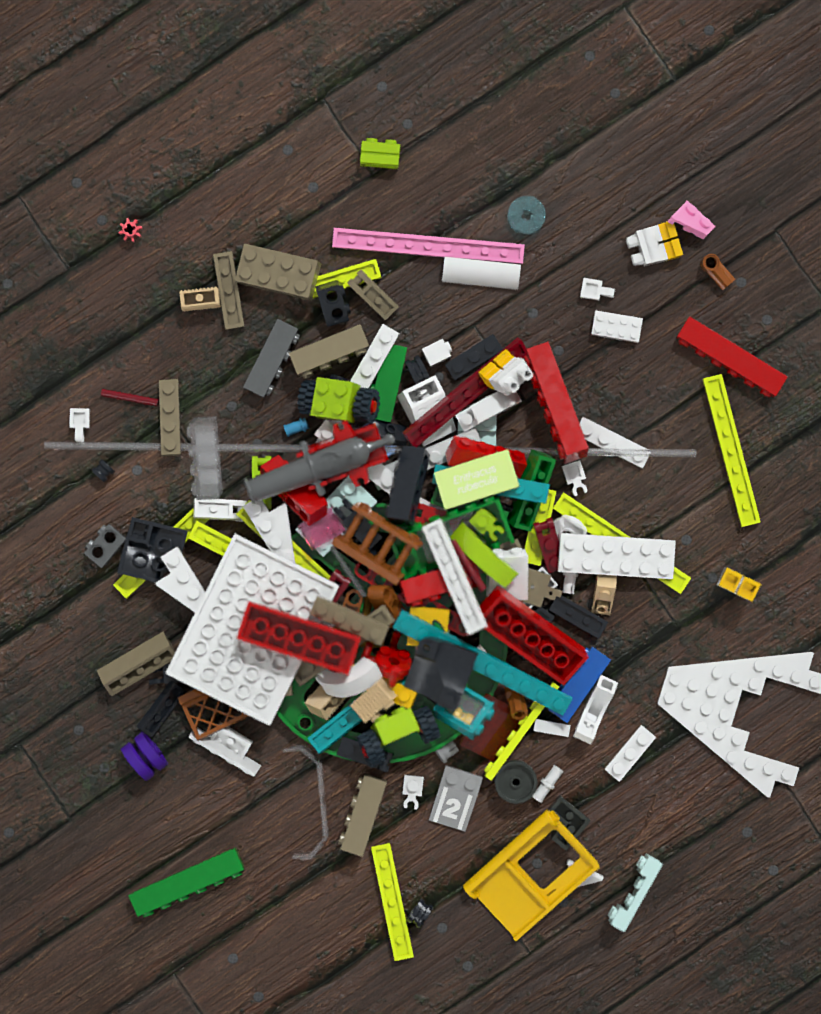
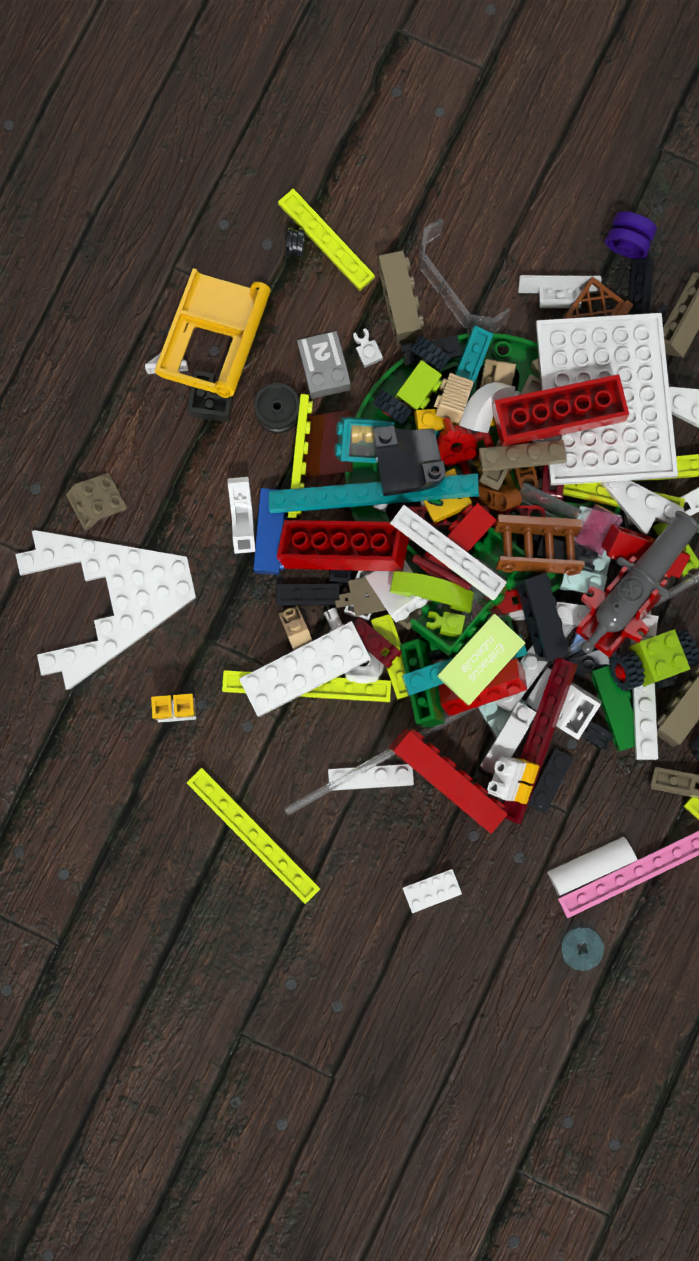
camera: 145 degrees right, 5 degrees down
(187, 881) = (522, 151): green brick -> none
(295, 427) = (676, 617): dark azure pin -> none
(437, 352) = (587, 764): white brick -> none
(447, 751) = (356, 400): light grey bush -> none
(517, 704) = (316, 476): dark orange piece -> none
(547, 783) = (246, 425): white pin -> none
(551, 727) = (273, 478): white piece -> none
(574, 474) = (389, 724): white plate -> none
(593, 289) = (475, 913): white plate -> none
(621, 916) = (108, 346): light aqua piece -> none
(630, 753) = (186, 497): white plate -> none
(649, 247) = (449, 991): white hips -> none
(692, 220) = (420, 1038): bright pink wing -> none
(704, 792) = (95, 500): none -> dark tan bracket
(718, 273) = (364, 1001): dark orange piece -> none
(732, 357) = (304, 926): red brick -> none

